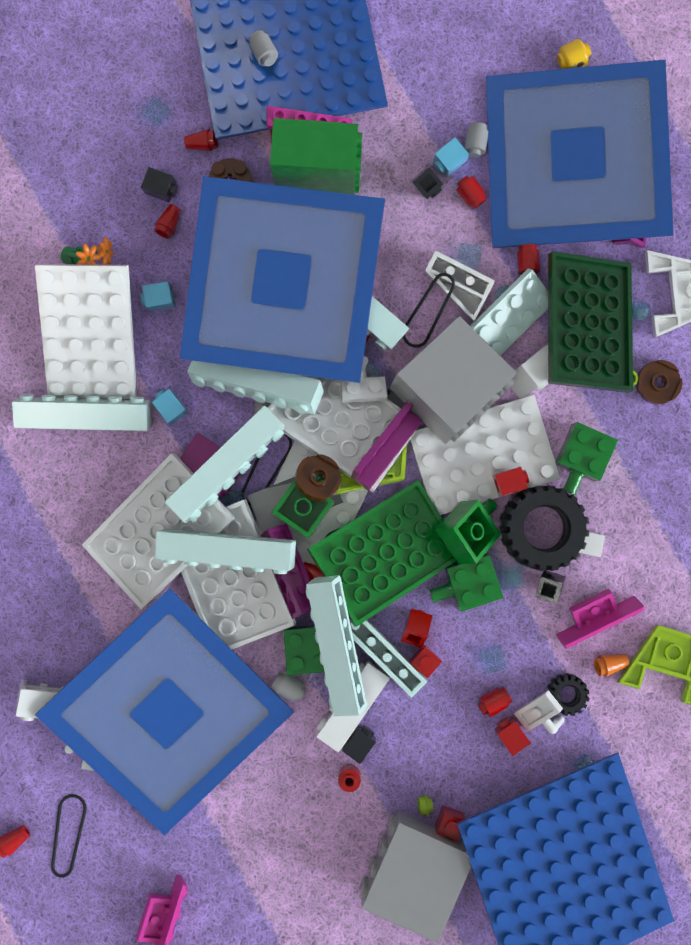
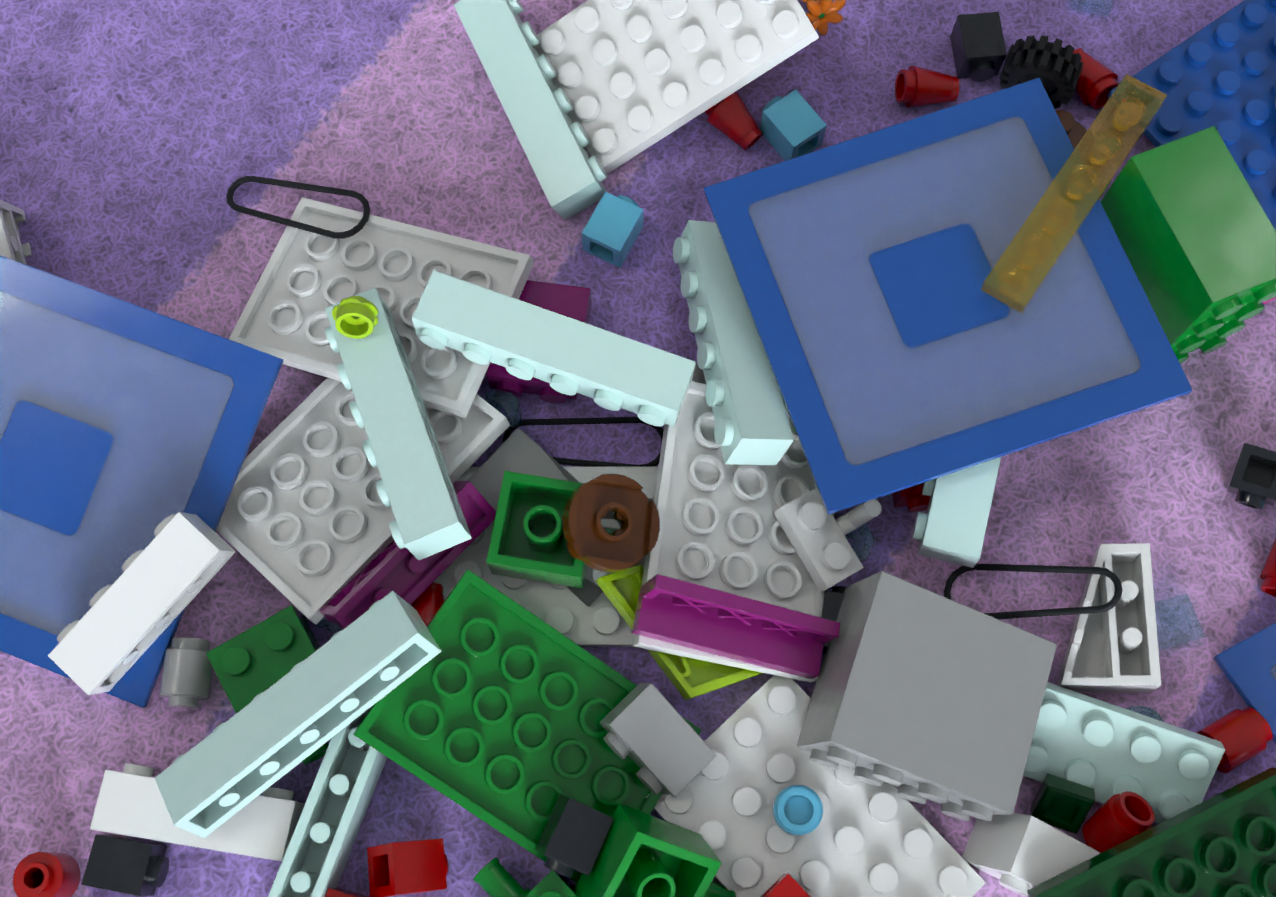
camera: 60 degrees right, 15 degrees down
(77, 541) = (341, 235): none -> black piece
(143, 321) = (734, 121): none -> red cone
(169, 546) = (355, 317): none -> lime plate
(190, 164) = (1045, 60): none -> black tyre
(251, 694) = (140, 602): none -> white brick
(270, 195) = (1073, 193): none -> clear yellow plate
(415, 501) = (656, 740): none -> light grey brick
(438, 554) = (573, 837): none -> black brick
(470, 457) = (797, 810): none -> medium azure tile
(519, 346) = (1062, 803): none -> dark green tile
(538, 329) = (1118, 821): none -> red brick

